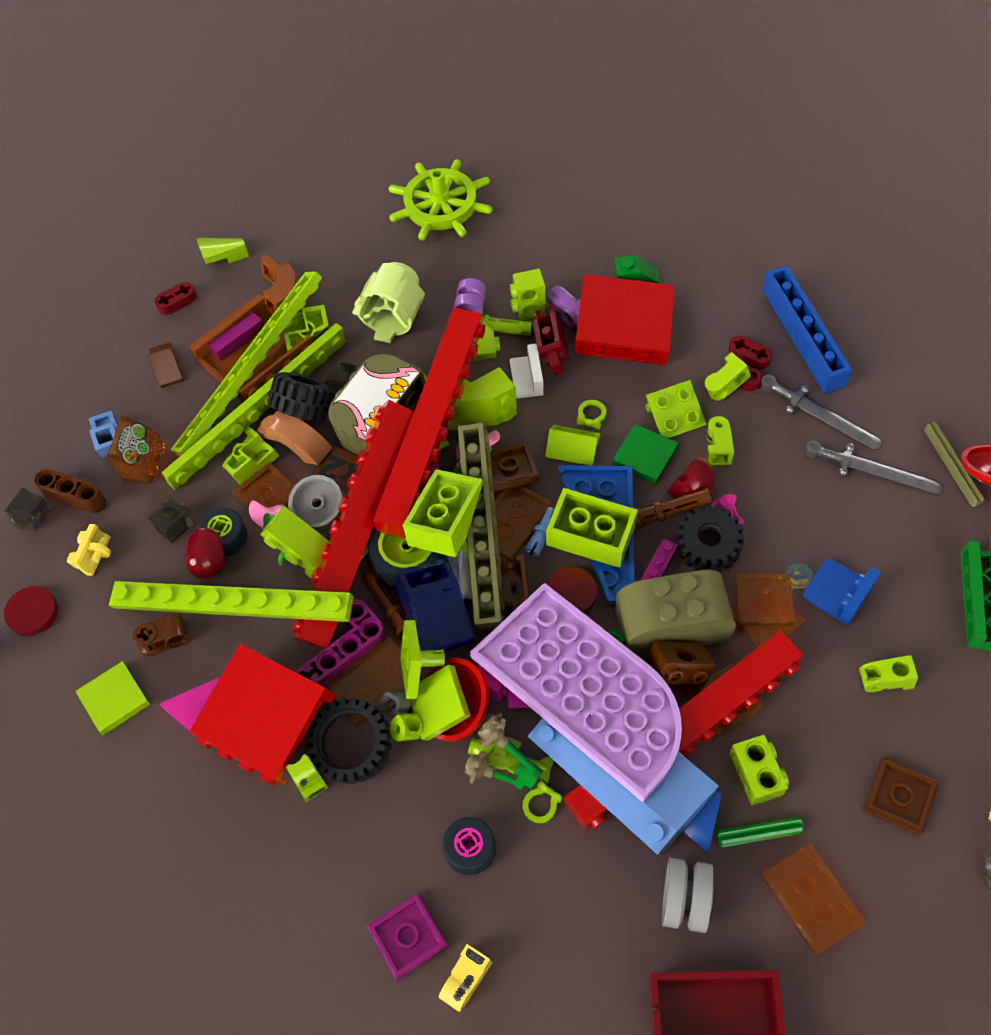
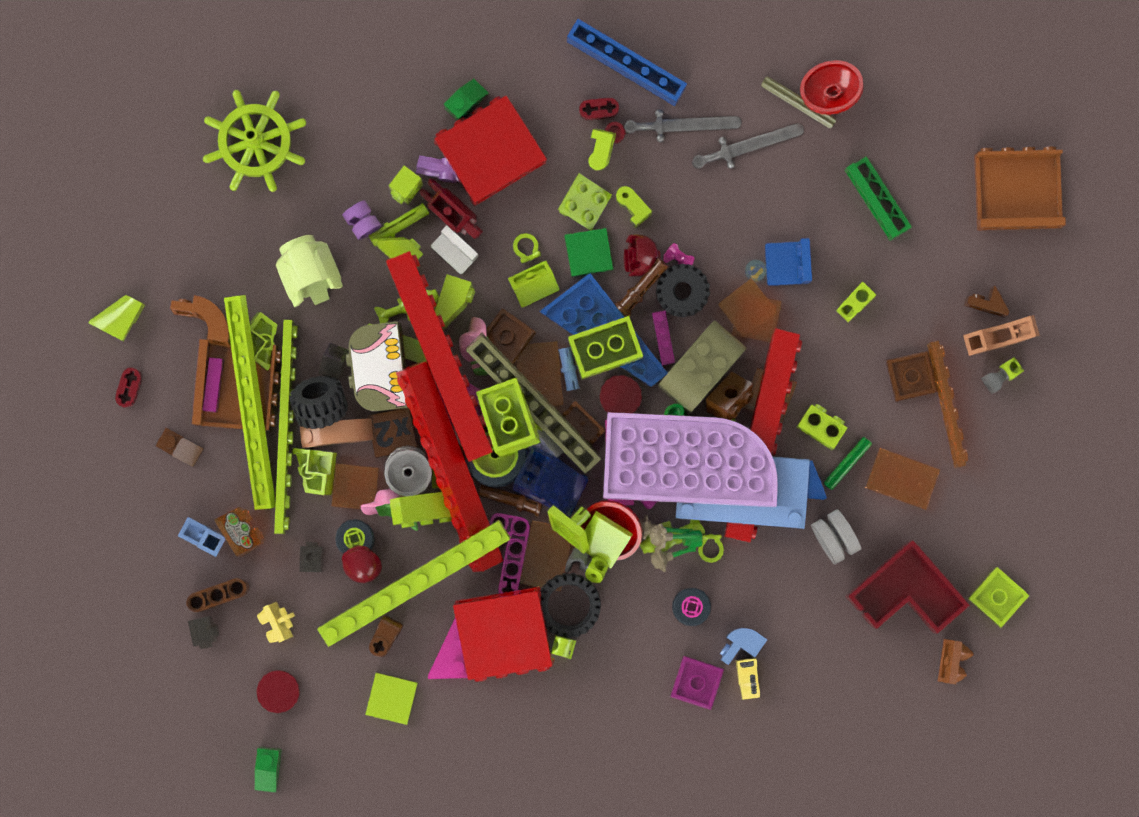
camera: 50 degrees left, 25 degrees up
(493, 926) = (742, 638): none -> medium blue brick
(921, 866) = (949, 412): none -> clear orange plate

